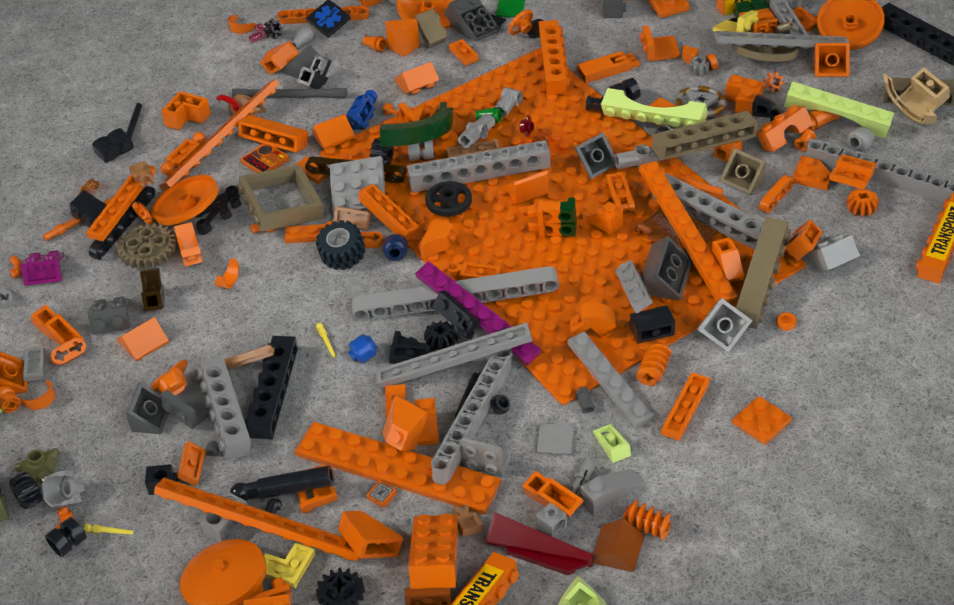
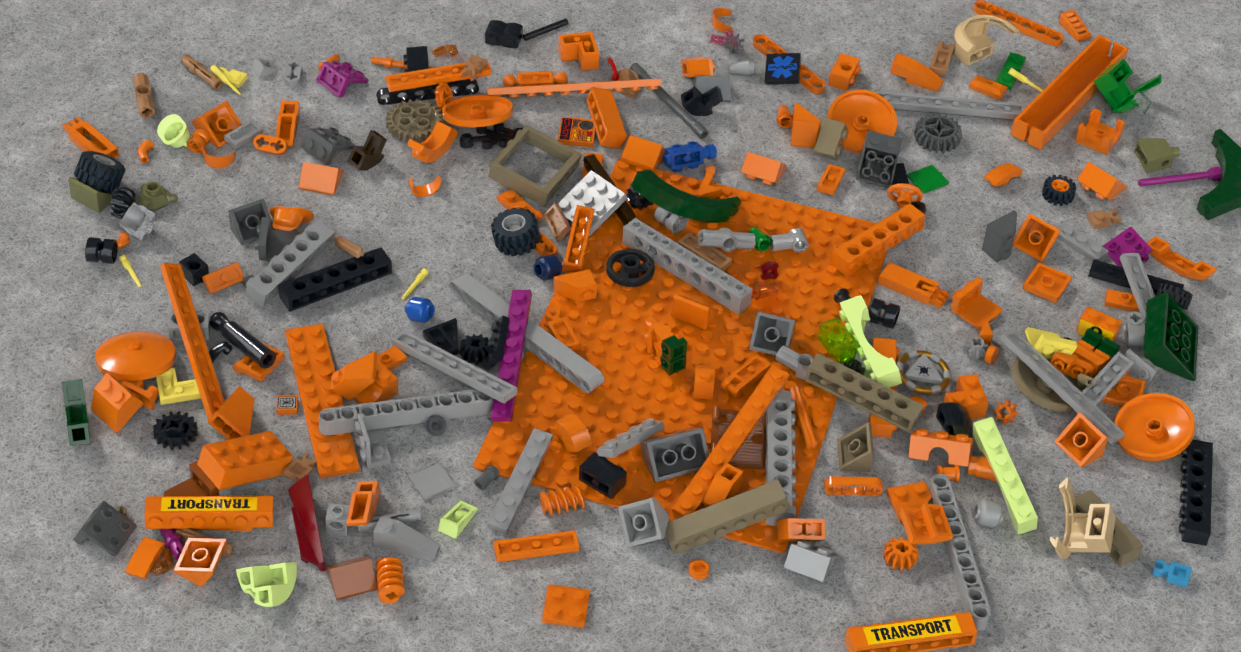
camera: 45 degrees right, 0 degrees up
(635, 125) = (838, 340): none -> clear neon green brick

